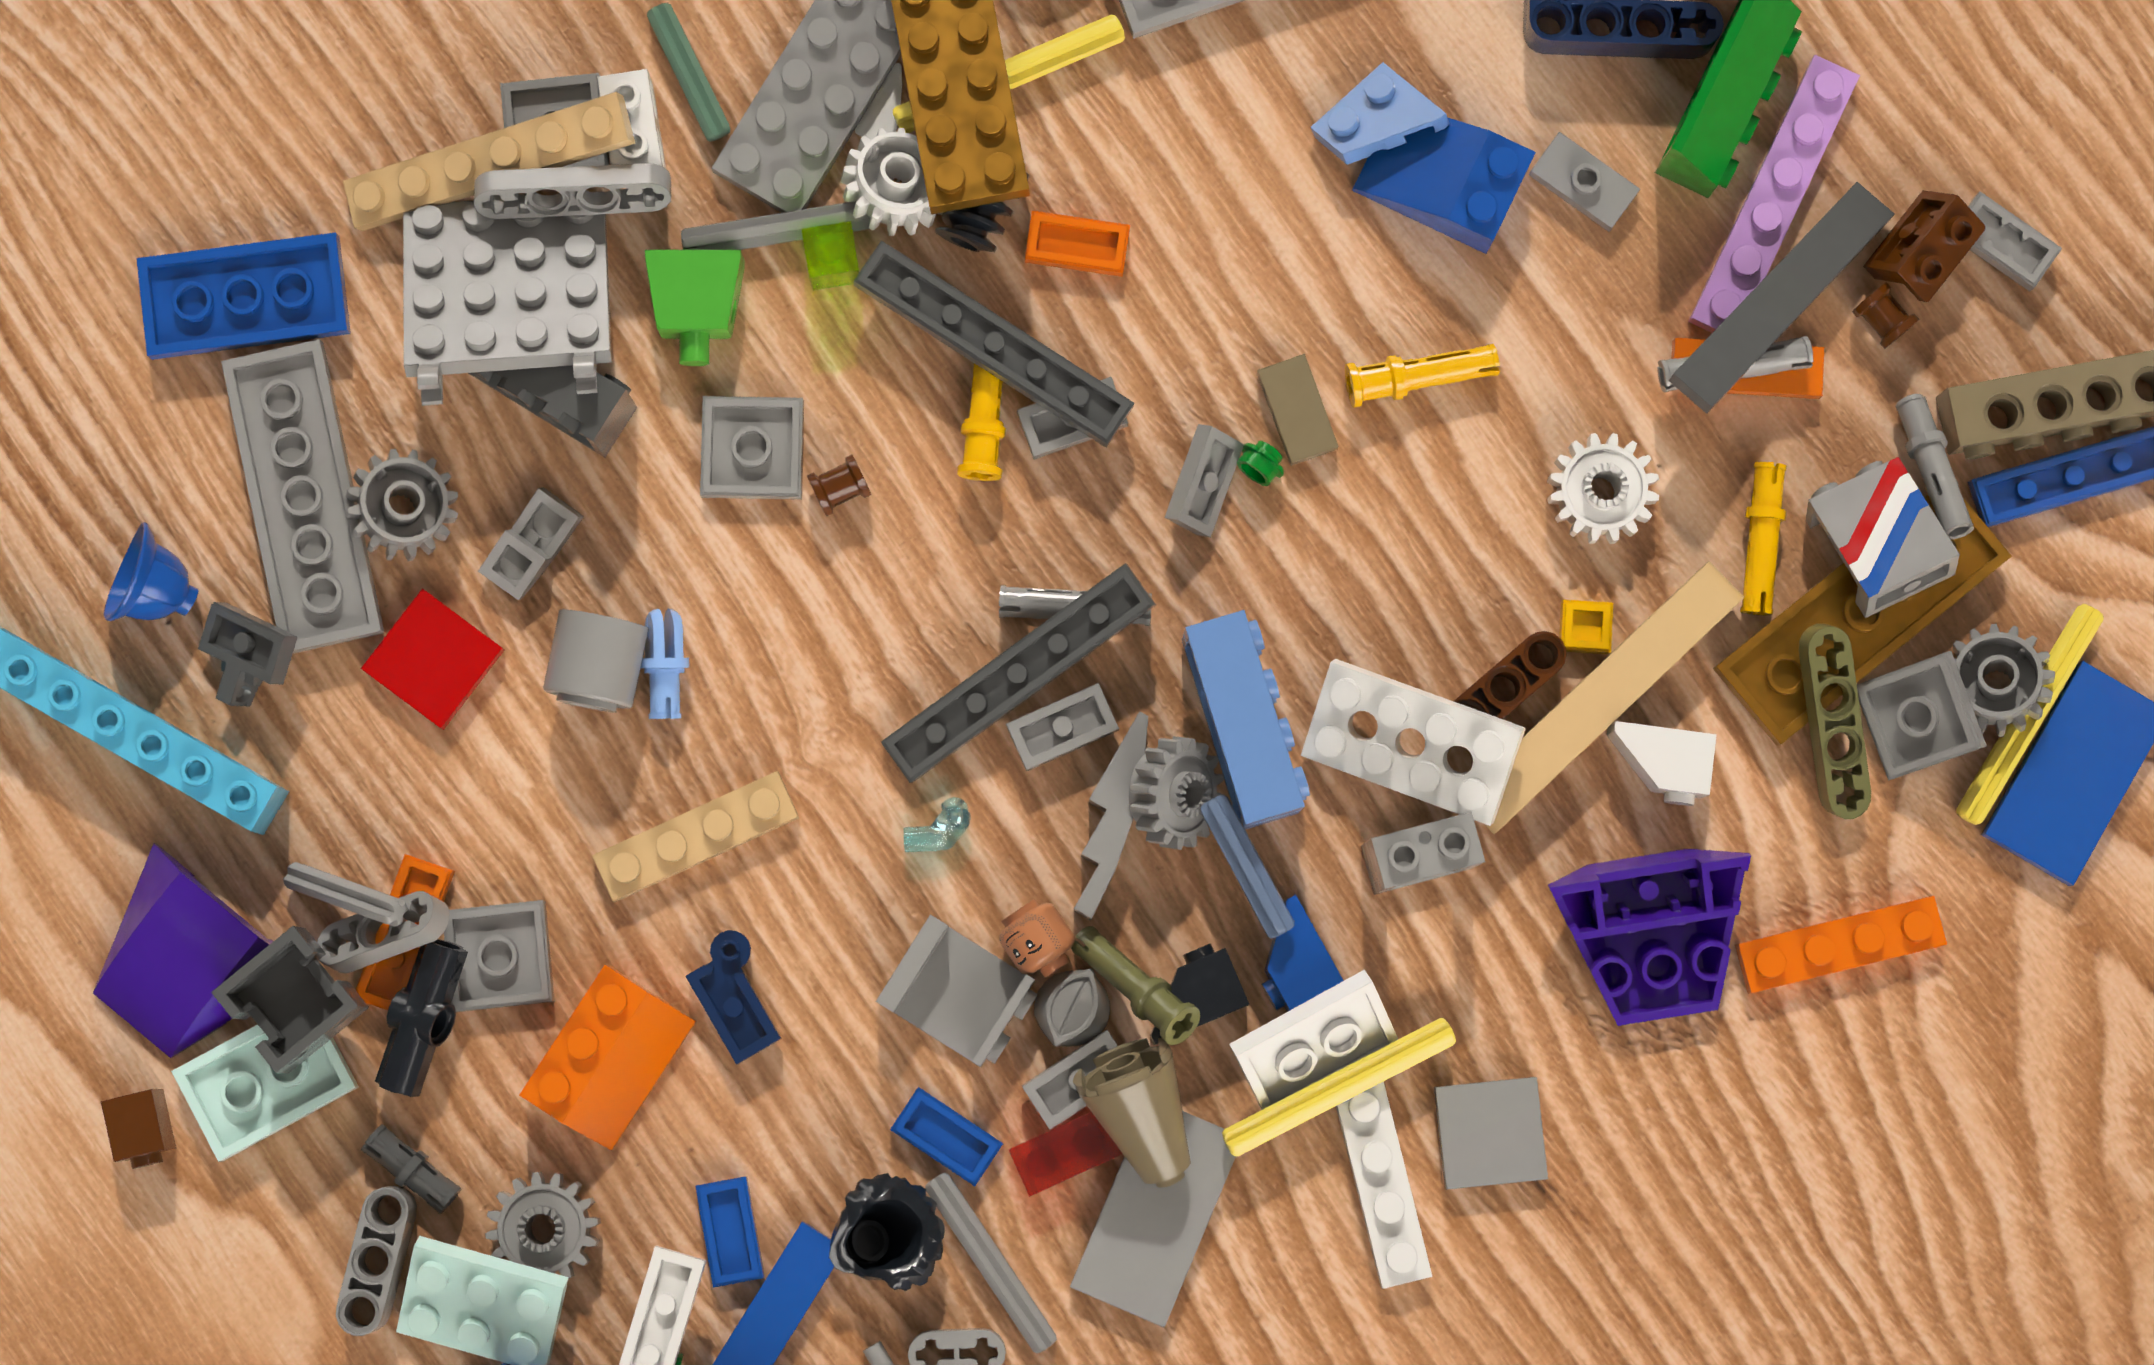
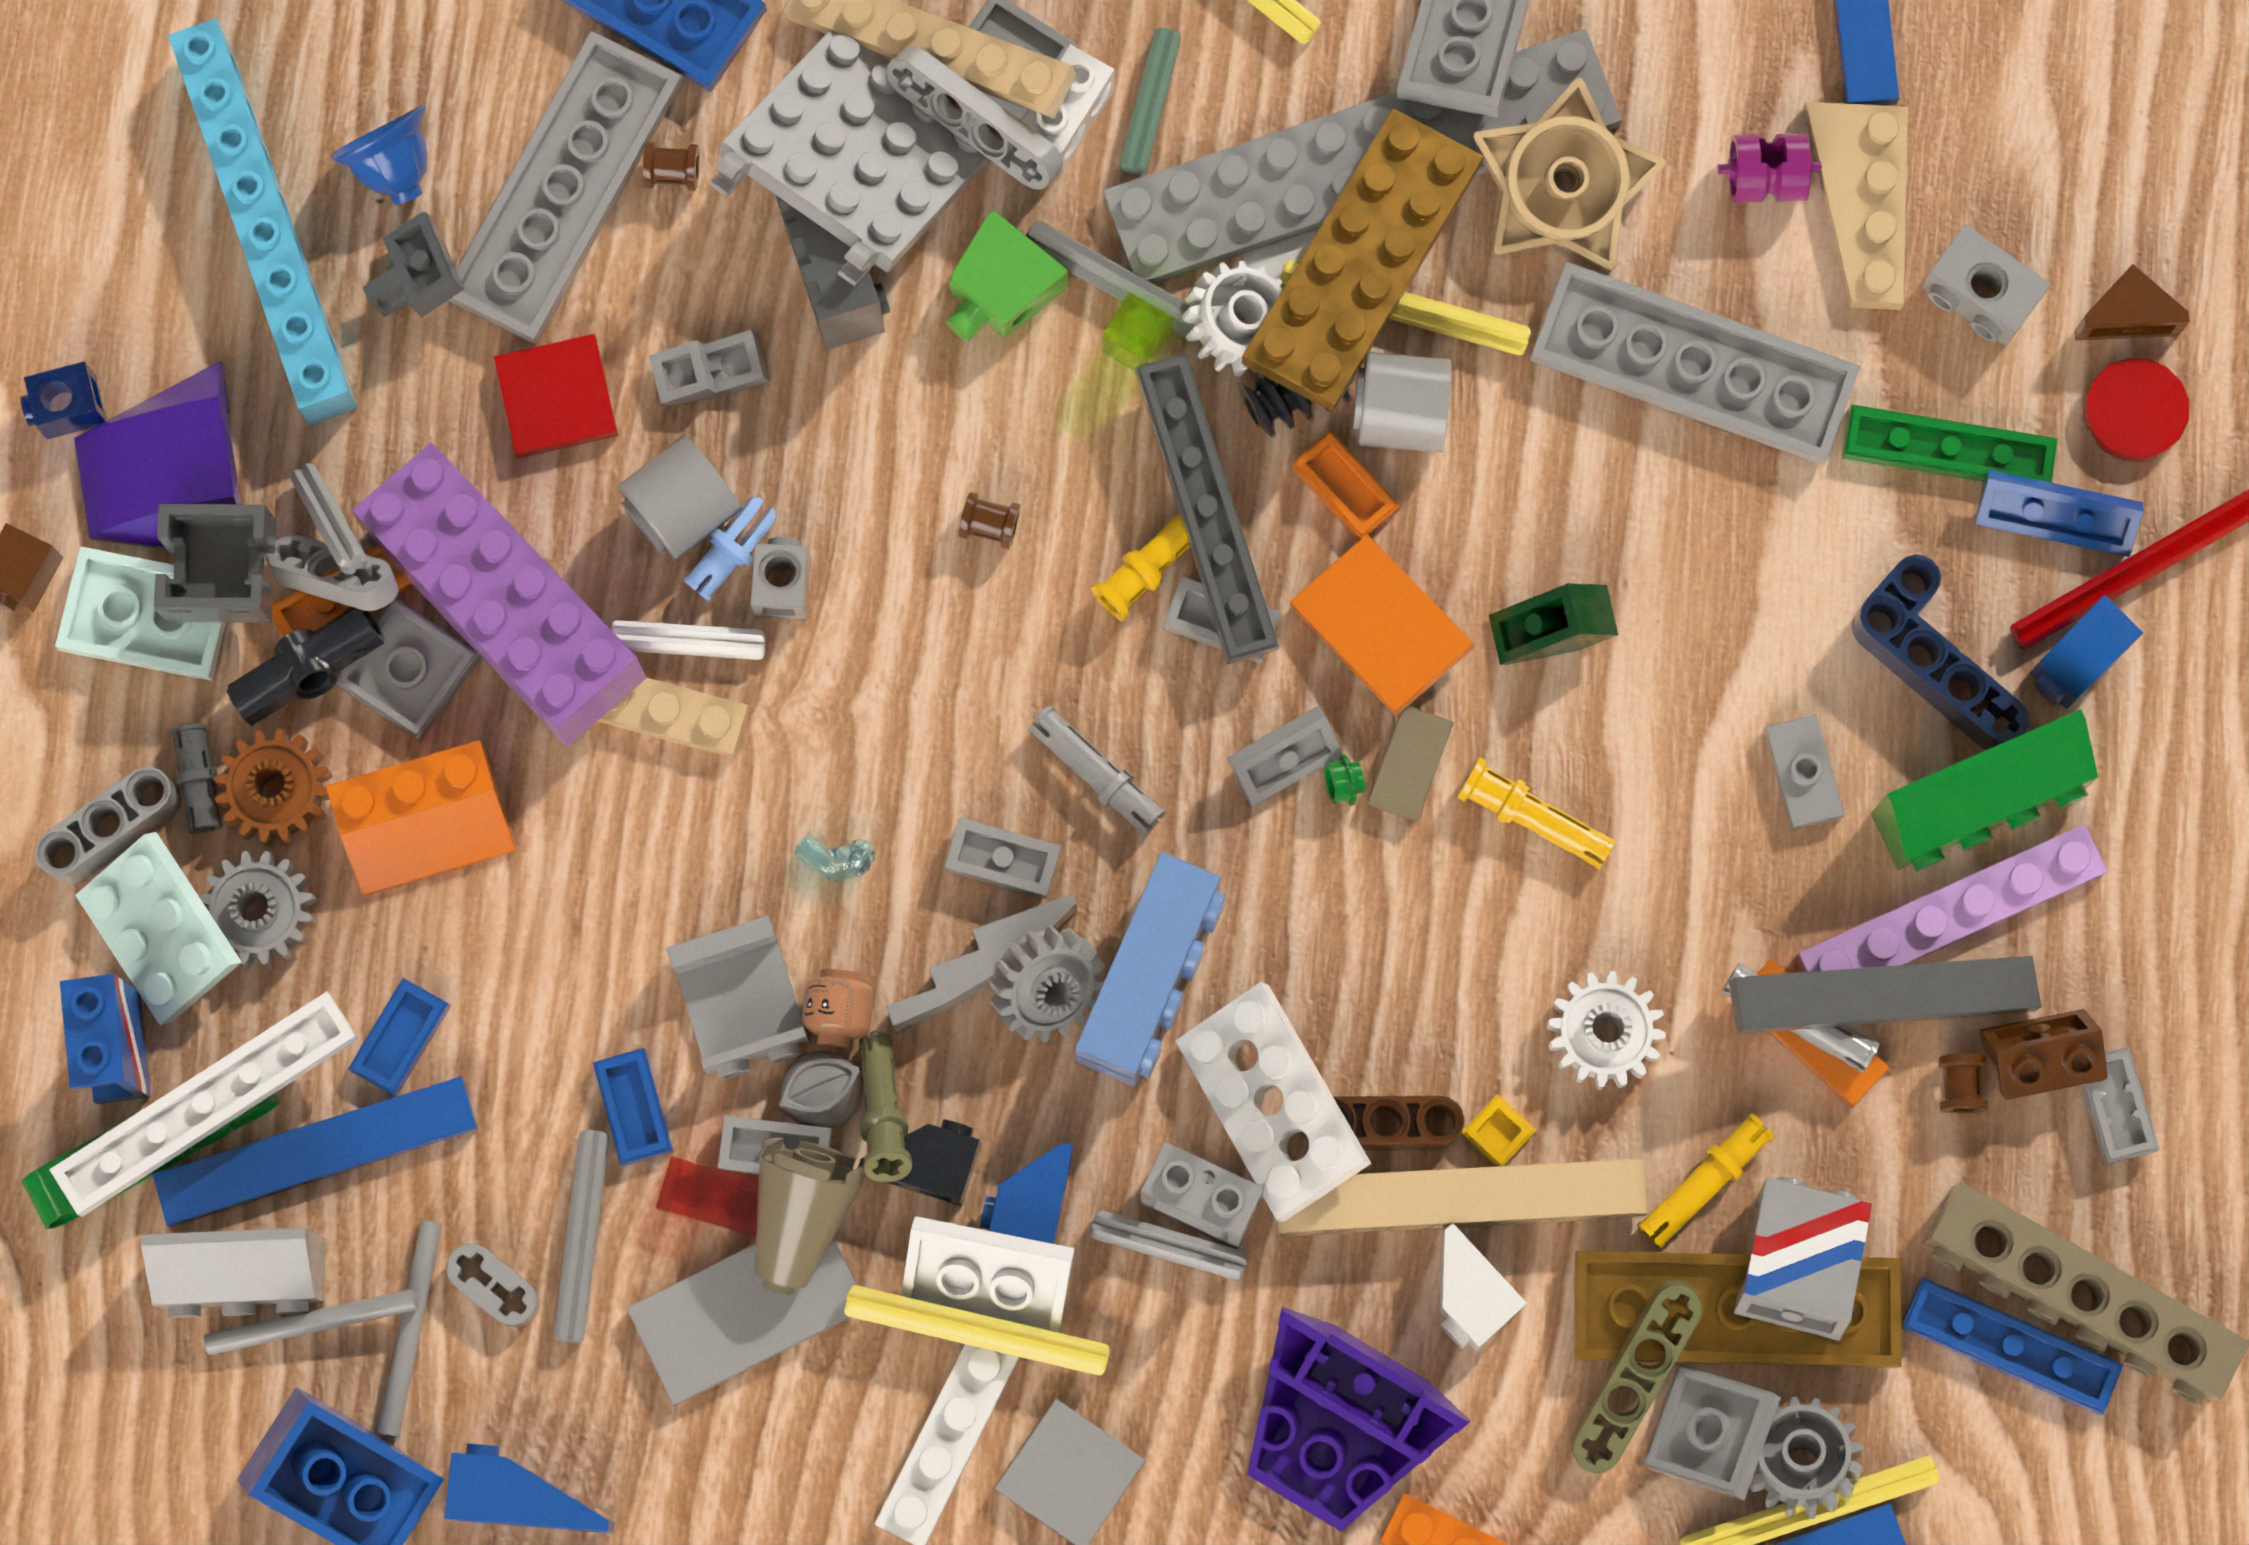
camera: 45 degrees right, 5 degrees down
(83, 967) = (82, 412): none -> clear blue brick
(370, 414) = (671, 166): none -> reddish brown bush
(414, 481) = (656, 238): light grey gear -> none
(449, 1132) = (254, 768): none -> dark orange gear
(522, 843) = (499, 594): none -> medium lavender brick
(690, 759) = (691, 639): none -> white axle
(731, 998) = (557, 855): dark blue hinge -> none
(734, 675) = (785, 601): none -> light grey brick
(752, 447) = (947, 436): light grey tile -> none
(888, 1233) = (518, 1138): black hair -> none
(1018, 673) = (1004, 785): dark grey tile -> none
(1072, 145) = (1402, 402): none -> light grey piece
(1192, 325) = (1381, 625): none -> orange tile
(1247, 866) = (1051, 1087): sand blue axle -> none
(1316, 221) = (1554, 623): none -> dark green slope
(1376, 116) = (1674, 580): medium blue wing -> none
(1421, 907) = (1168, 1245): none -> light grey axle
(1449, 180) = (1692, 673): blue slope -> none
(1928, 448) = (1905, 1219): light grey pin -> none

